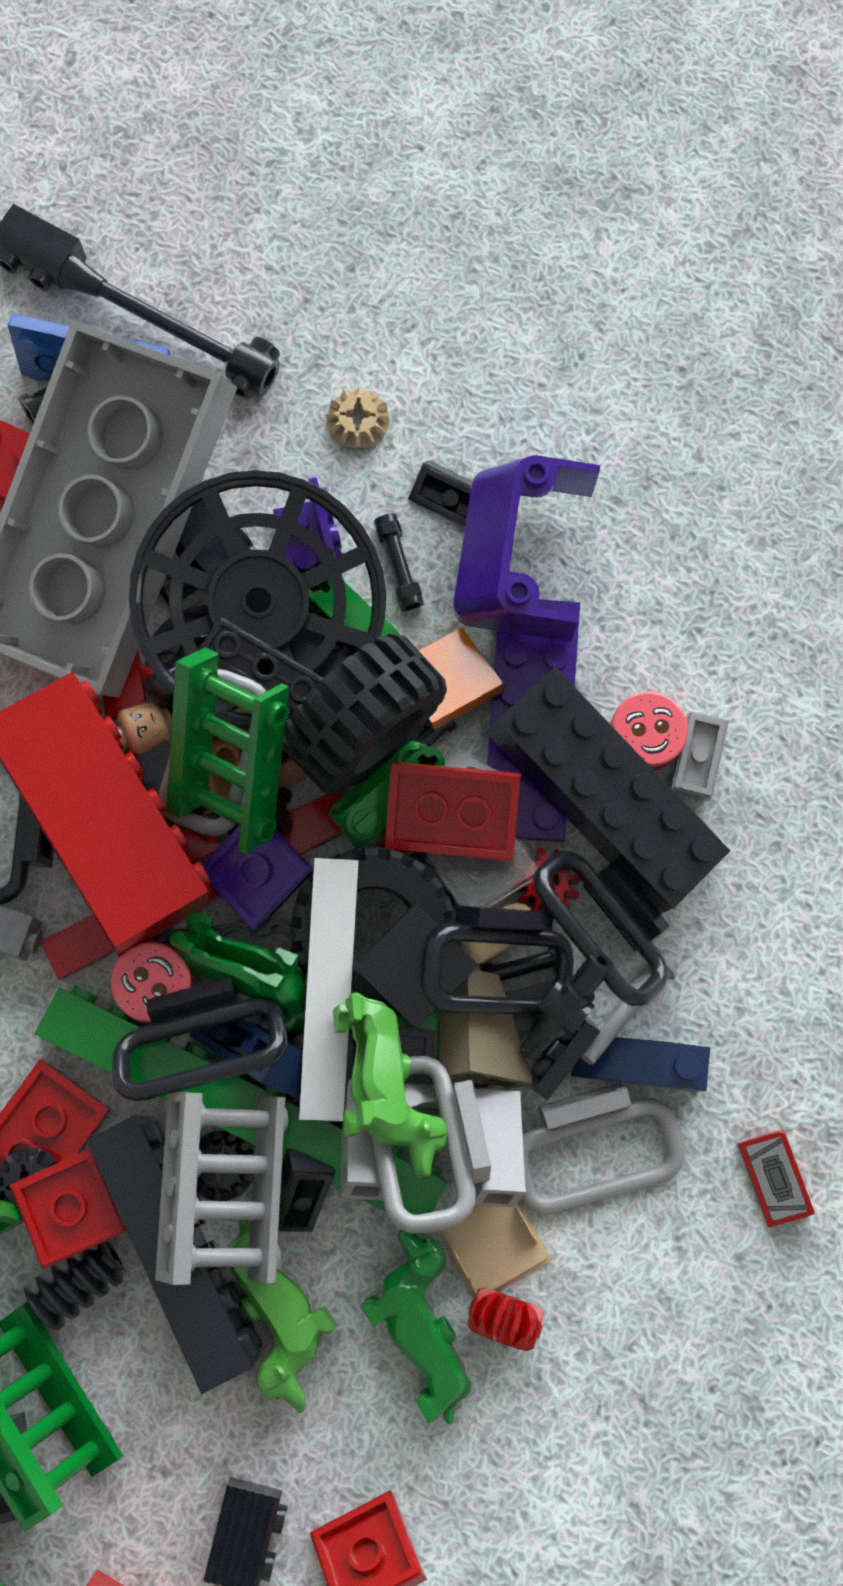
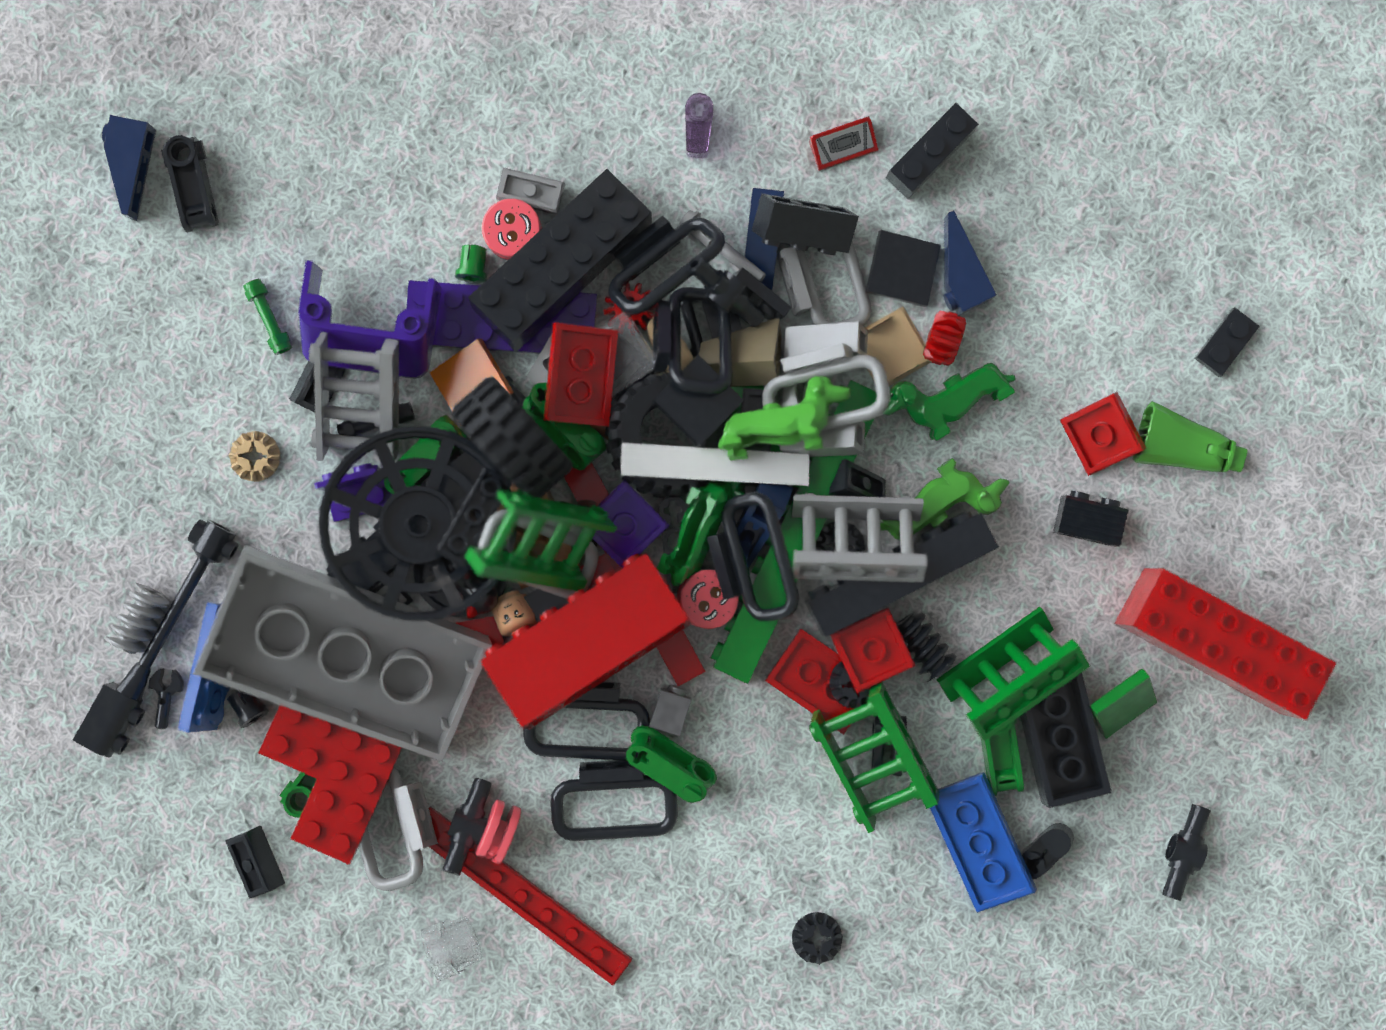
camera: 90 degrees left, 10 degrees up
(66, 314) = (164, 695): none -> black bar
(156, 284) = (139, 620): none -> light grey piece
(436, 563) = (384, 389): none -> light grey fence
(562, 421) = (256, 292): none -> green bar
(594, 1349) = (963, 274): none -> dark blue slope
(602, 681) = (472, 264): none -> green bush
(603, 1260) = (903, 268): none -> black tile
(660, 1118) = (804, 224): none -> black brick
(698, 344) = (190, 182): none -> black piece
(728, 273) = (128, 154): none -> dark blue slope
(770, 1304) = (931, 150): none -> black brick
(788, 977) = (698, 127): none -> clear purple piece

